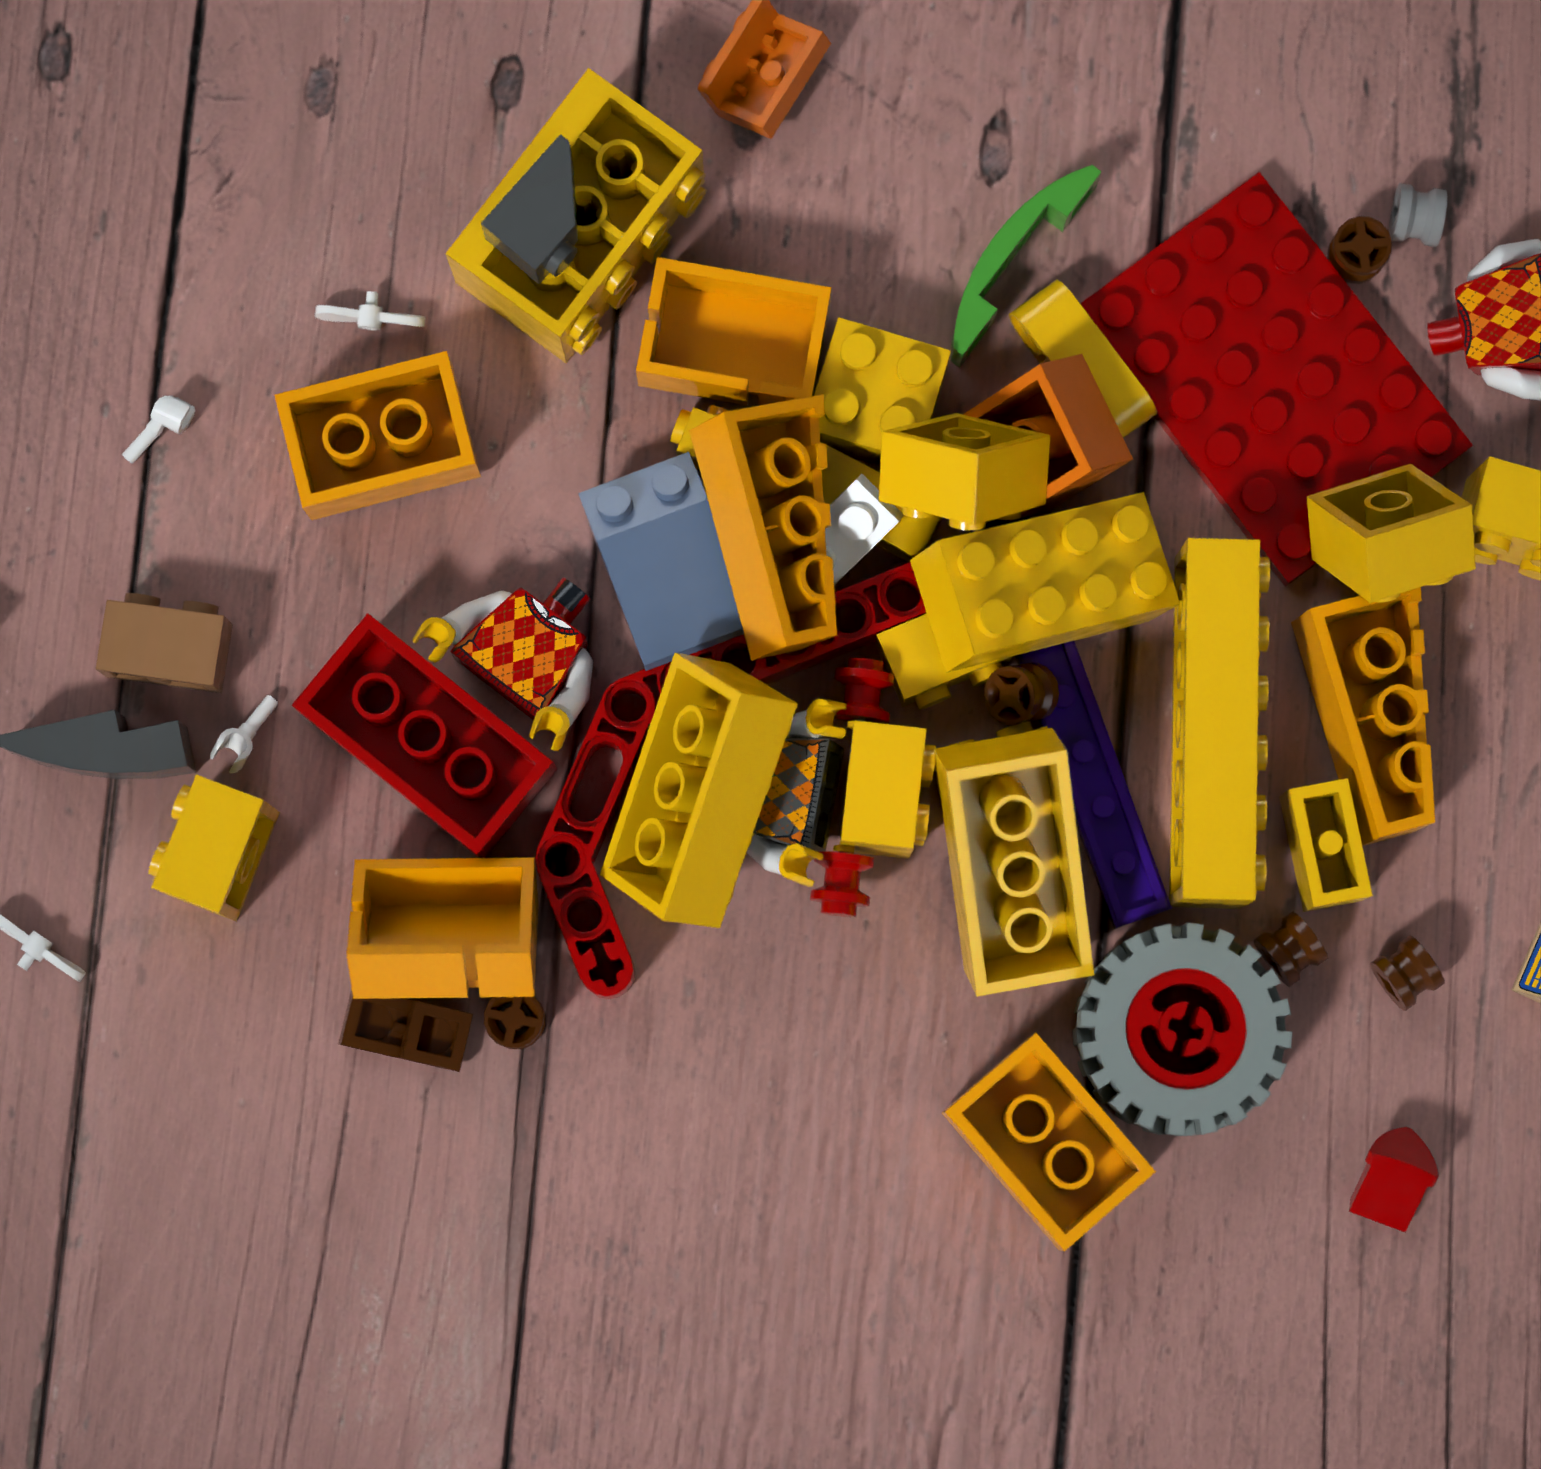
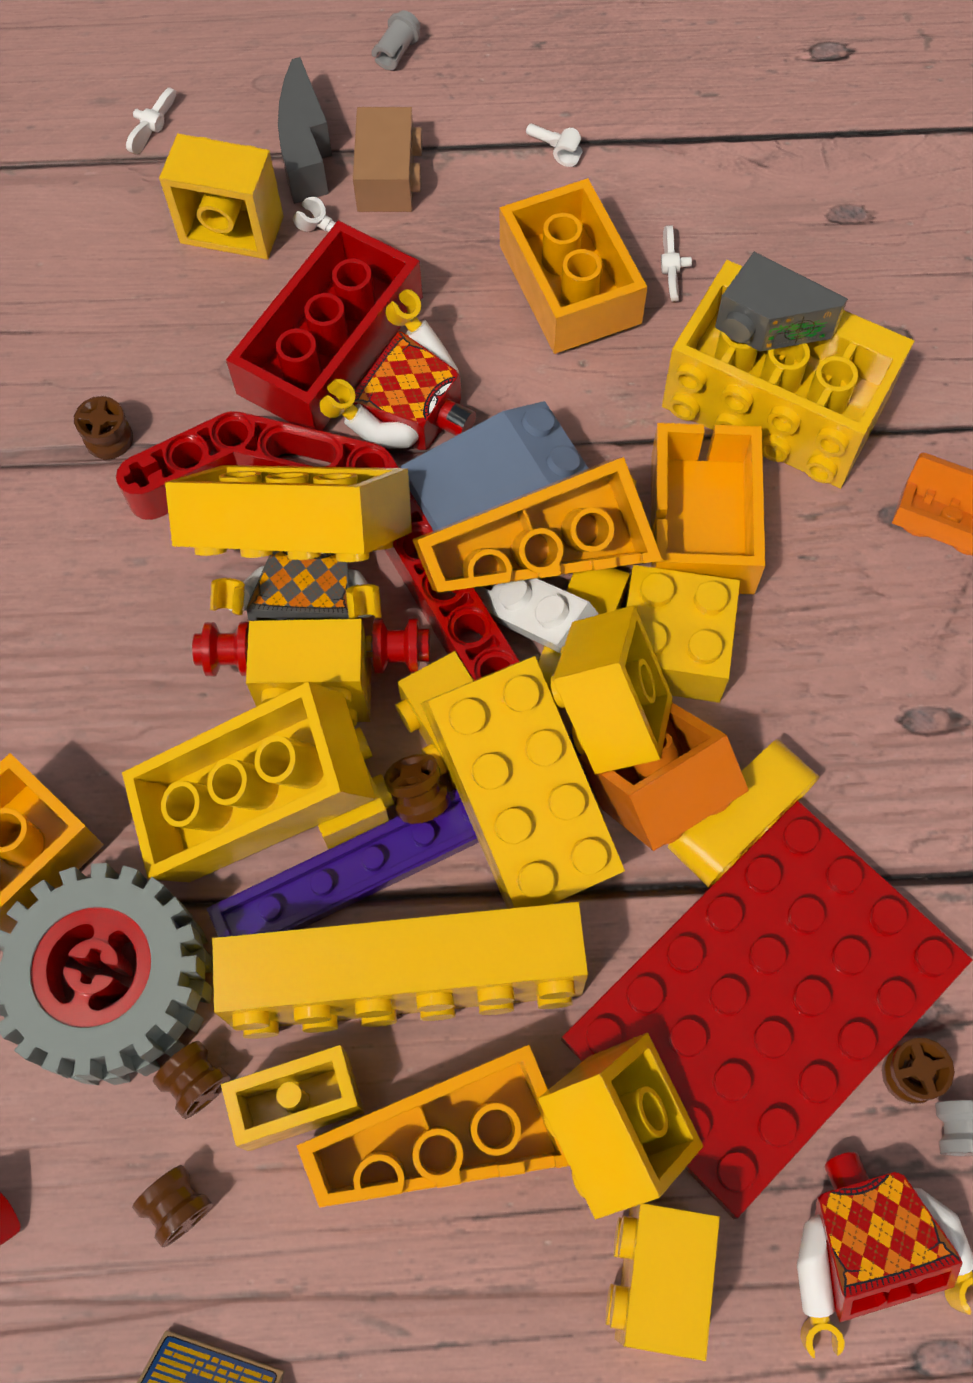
camera: 85 degrees right, 15 degrees down
(407, 1030) = (97, 355): reddish brown slope -> none
(443, 928) = (168, 359): light orange piece -> none
(1055, 204) = (897, 770): bright green slope -> none

